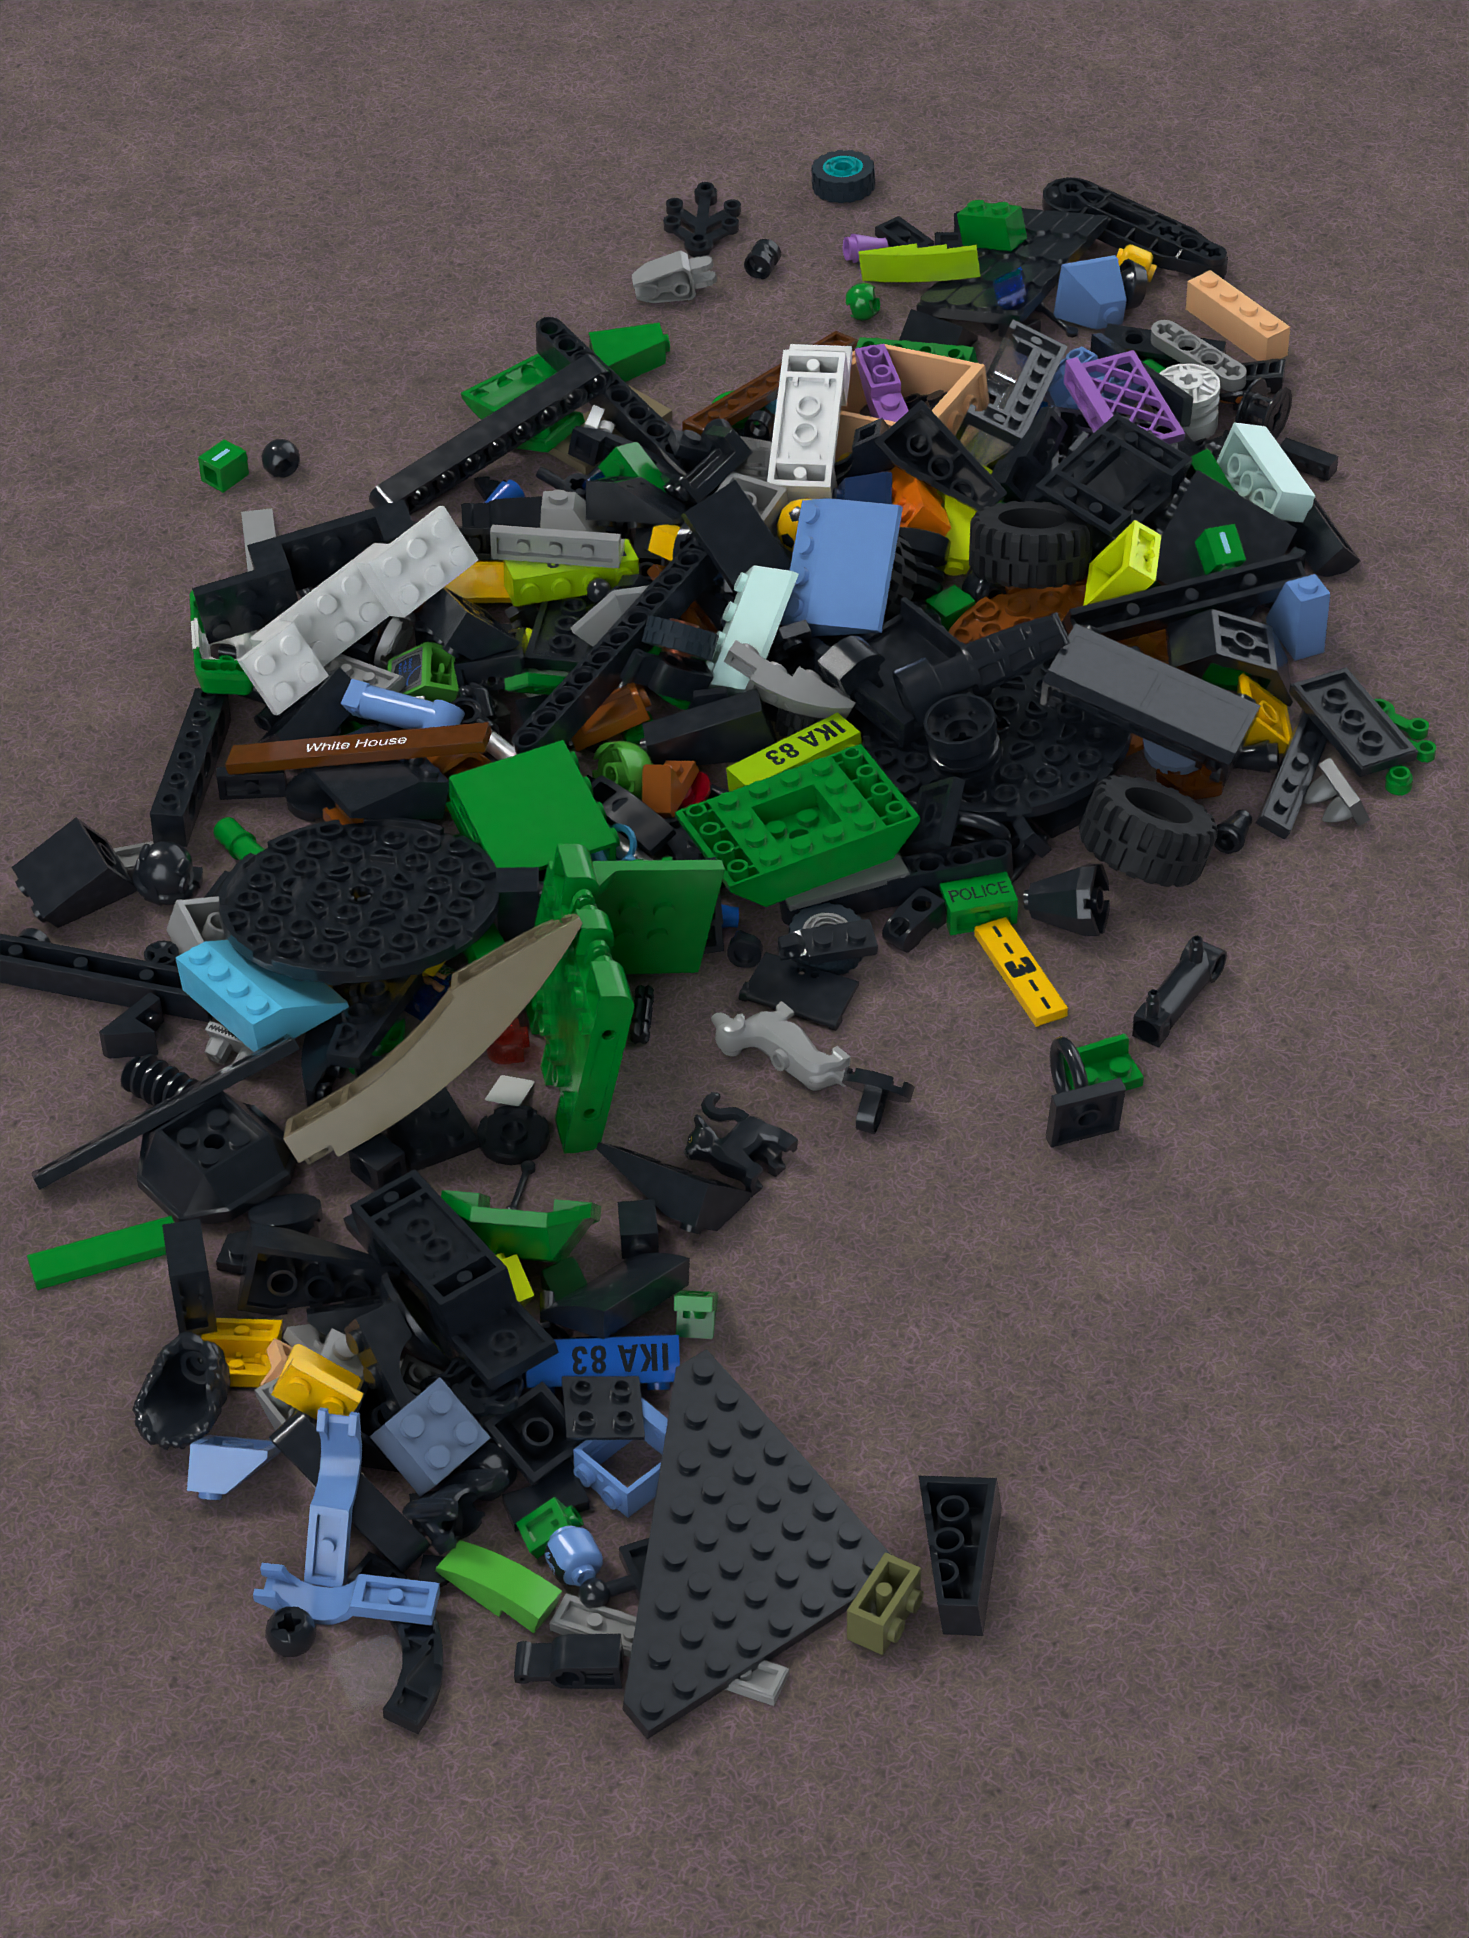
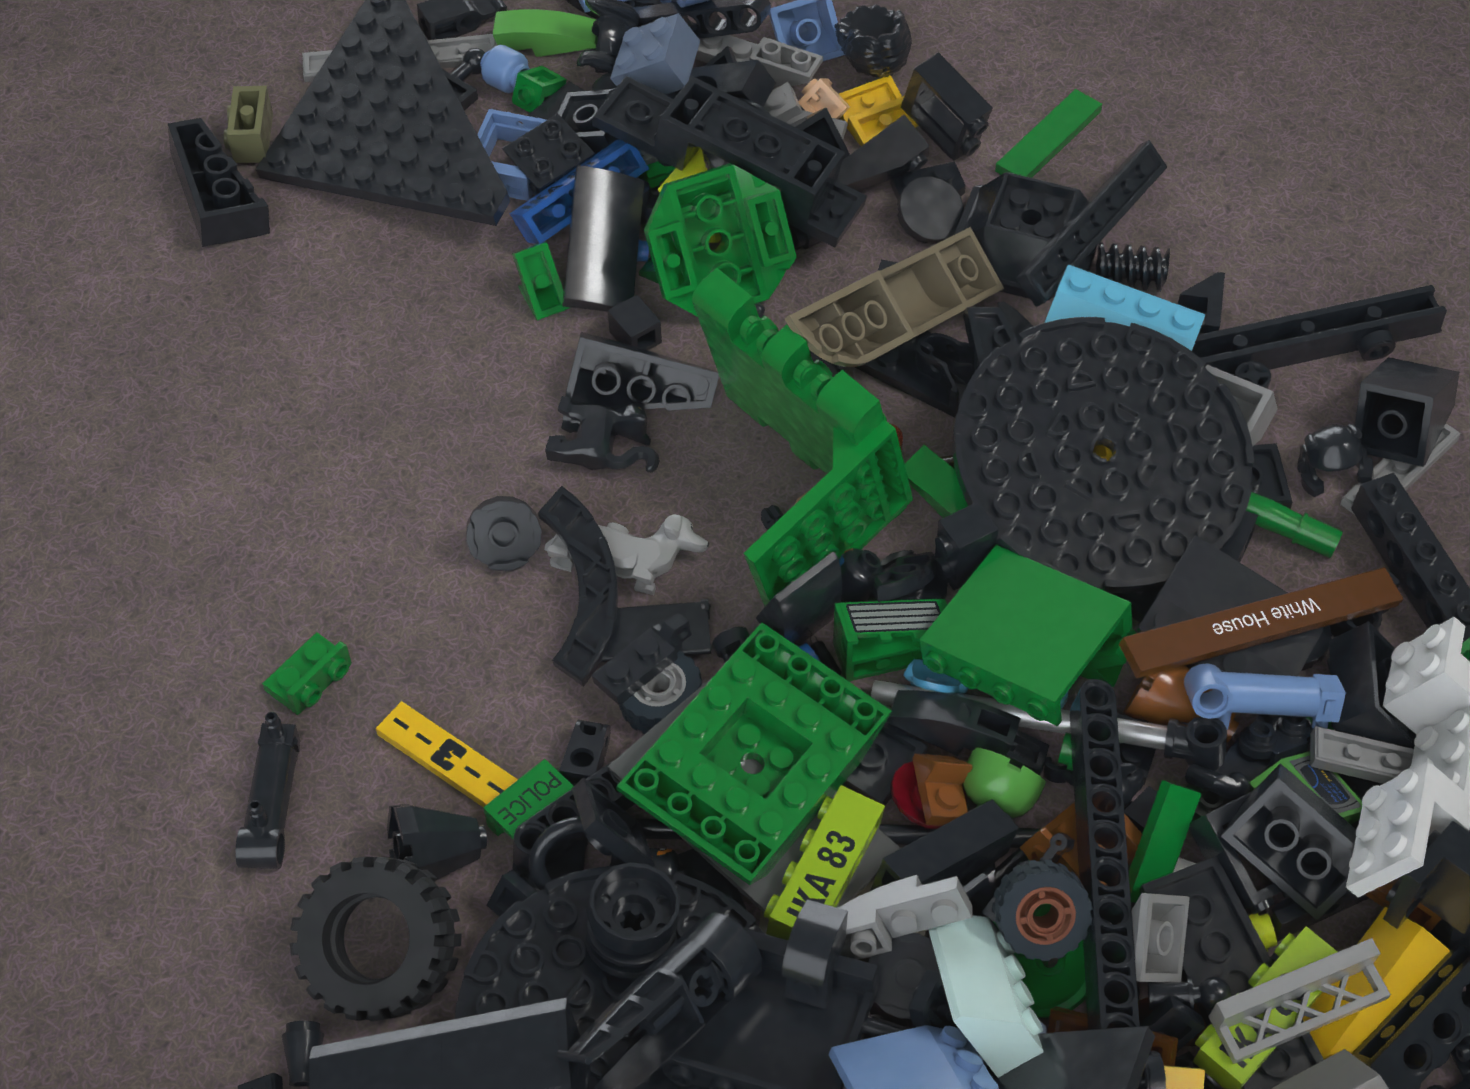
camera: 150 degrees right, 10 degrees up
(316, 1382) = (771, 40): yellow bracket -> none
(829, 1011) = (596, 585): none -> black tile
(1087, 1108) = (291, 591): black tile -> none

